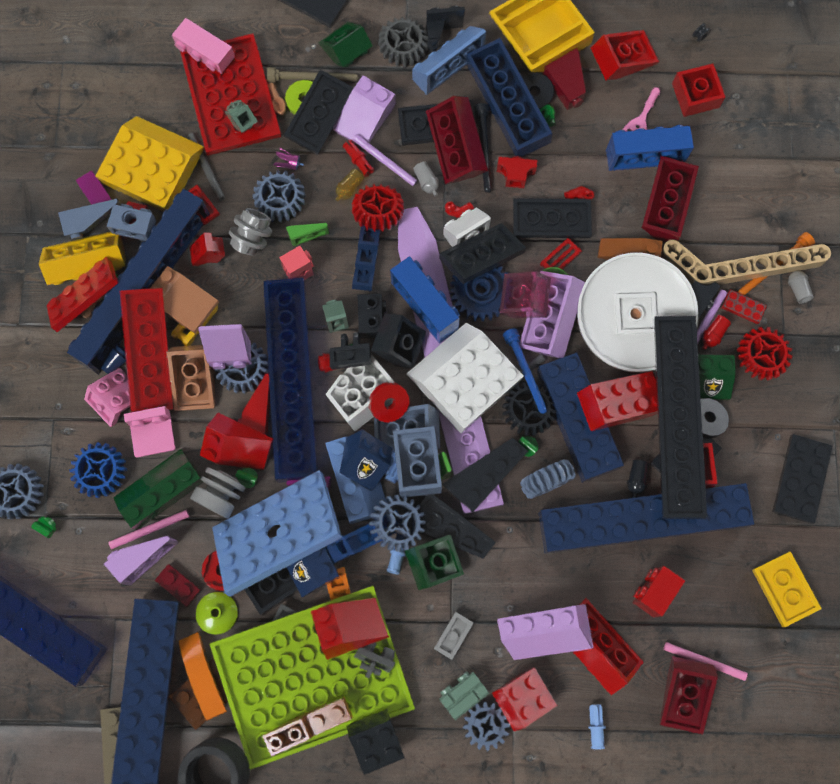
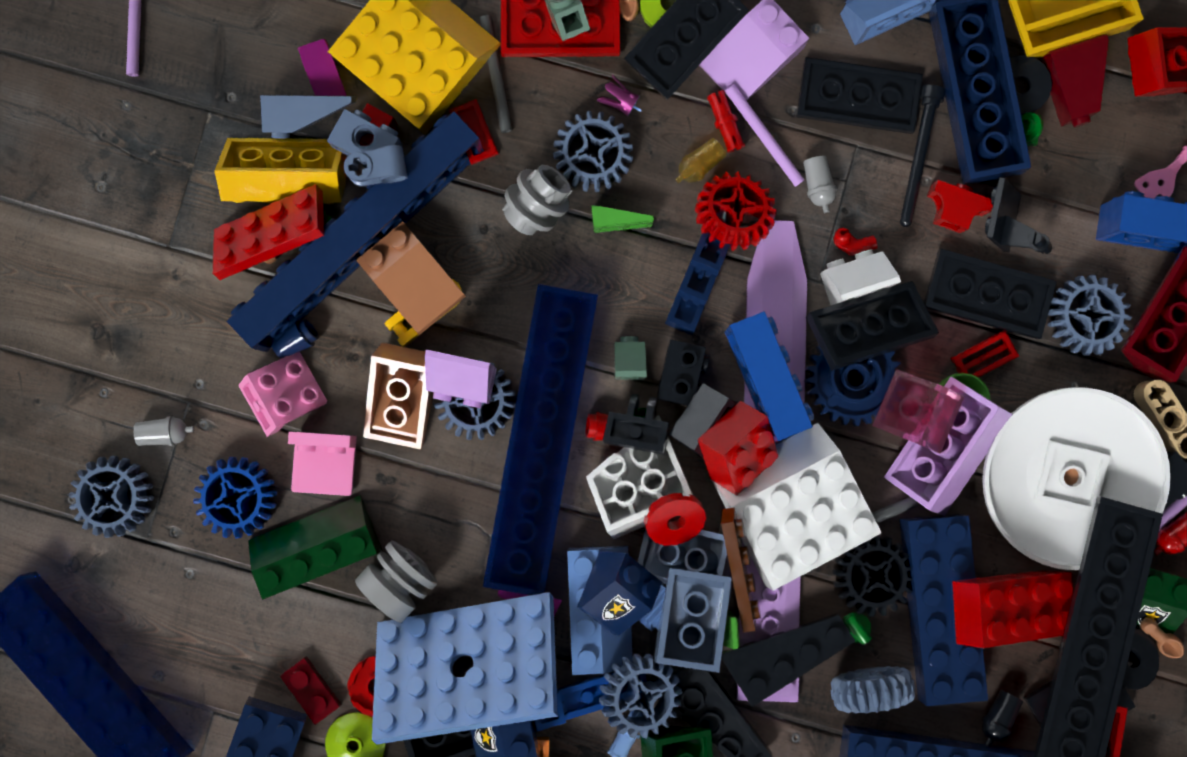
camera: 15 degrees right, 10 degrees up
(42, 440) = (161, 431): none -> light grey piece
(45, 526) = (143, 559): green plate -> none
(132, 562) = (249, 648): lavender slope -> none
(143, 231) = (381, 166): none -> sand blue piece
(146, 349) = (342, 343): red plate -> none
(149, 529) = (288, 600): bright pink piece -> none
(207, 250) = (466, 209): red brick -> none
(235, 444) = (437, 516): red slope -> none
(247, 477) = (443, 564): green plate -> none
(258, 408) = (478, 477): red slope -> none
(297, 263) = (594, 270): coral brick -> none
(417, 346) = (738, 447): none -> red brick
(436, 414) = (738, 558): none -> reddish brown plate
(456, 139) = (881, 134): dark red slope -> none
(512, 339) = (879, 463): blue piece -> none
(548, 173) = (1004, 228): none -> black plate
(579, 193) = (1043, 265): red arm -> none
(603, 219) = (1092, 293): none -> sand blue gear
(617, 246) = (1088, 372): dark orange slope -> none
(729, 402) = (1166, 643): none -> nougat piece

